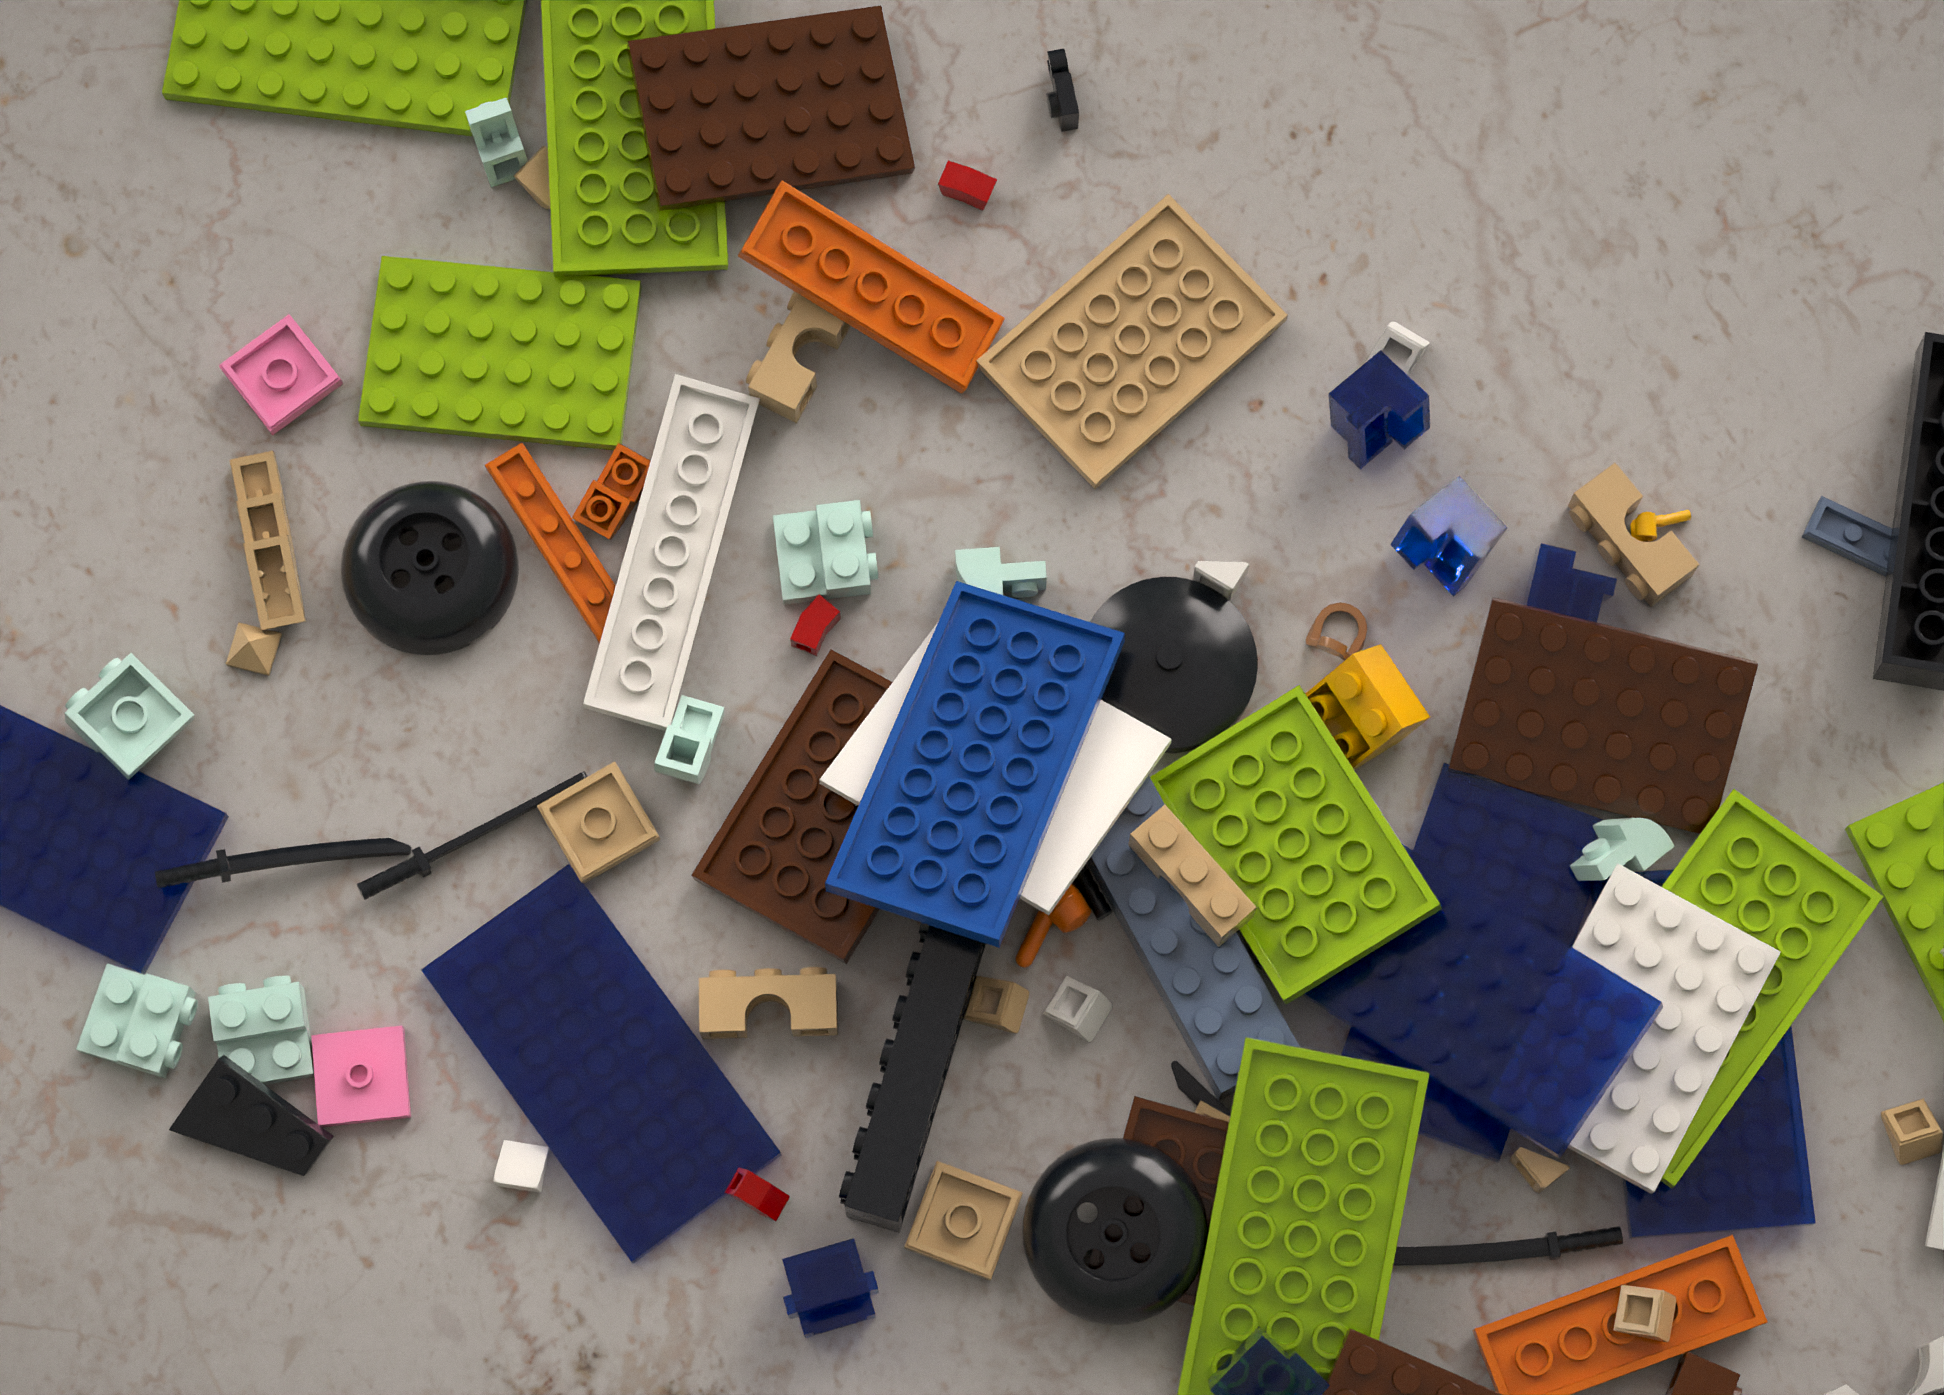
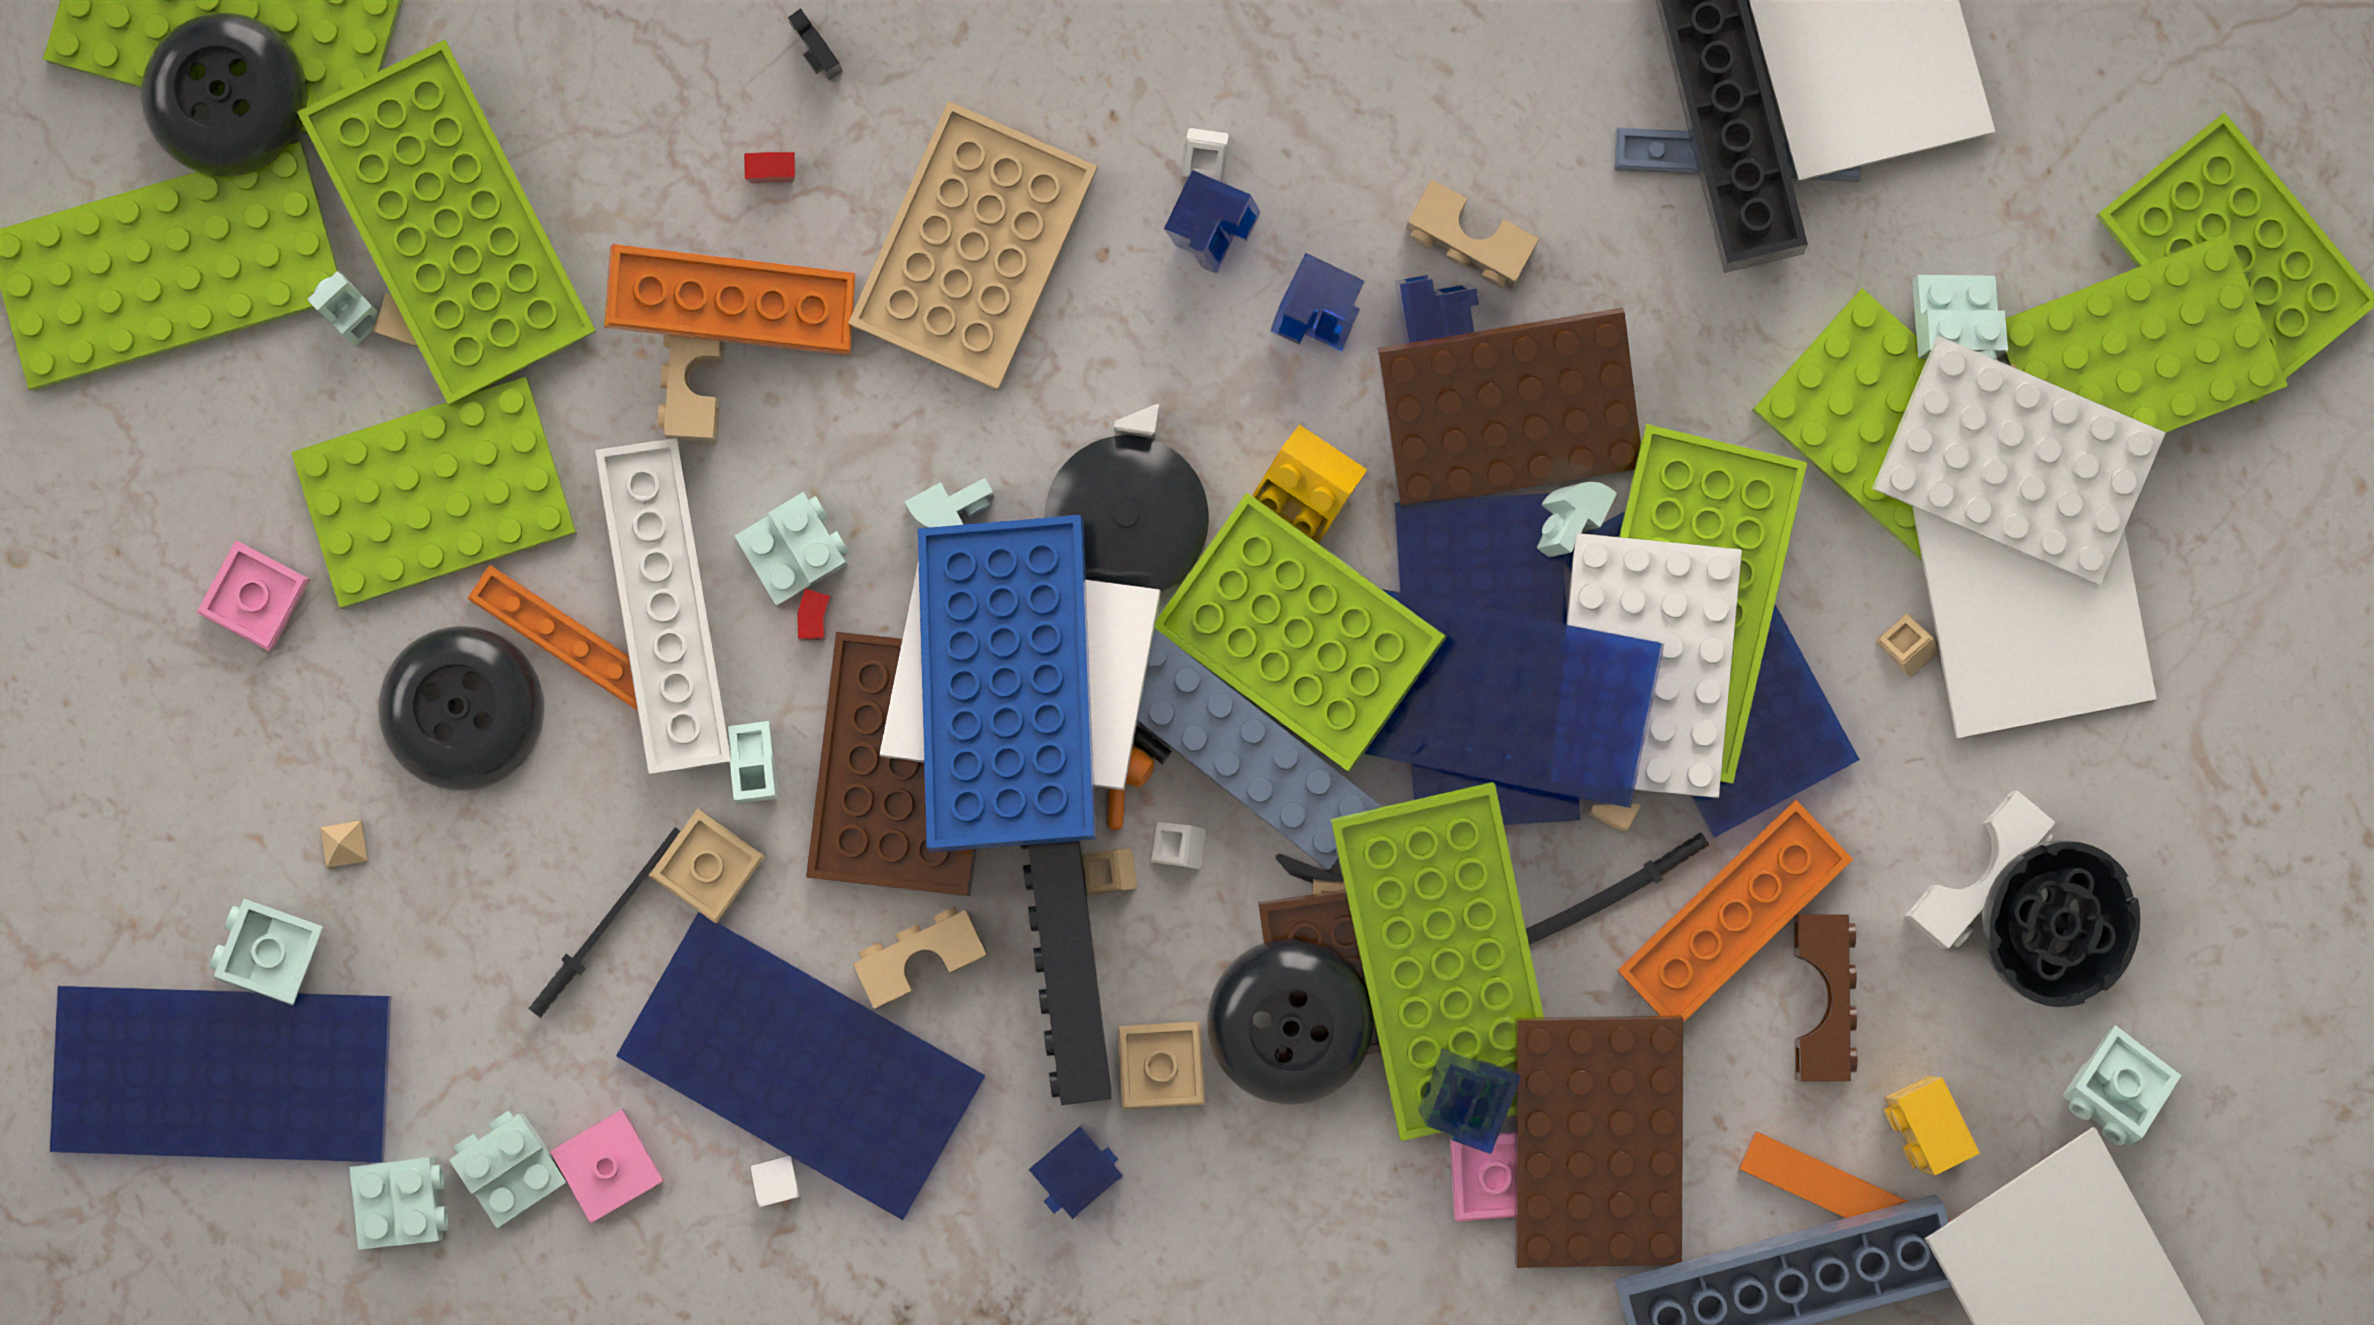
camera: 25 degrees left, 10 degrees up
(247, 862) = (412, 1041): black sword -> none
(251, 1120) = (533, 1243): black wing -> none
(267, 540) = (312, 746): tan slope -> none
(614, 493) = (589, 573): orange slope -> none
(757, 1194) = (981, 1119): red piece -> none
(770, 104) = (568, 173): reddish brown plate -> none
(1205, 887) = (1227, 701): tan arch -> none
(1331, 645) = (1238, 432): medium nougat piece -> none
(1644, 526) = (1479, 221): yellow hand -> none
(1645, 1312) = (1751, 896): tan slope -> none

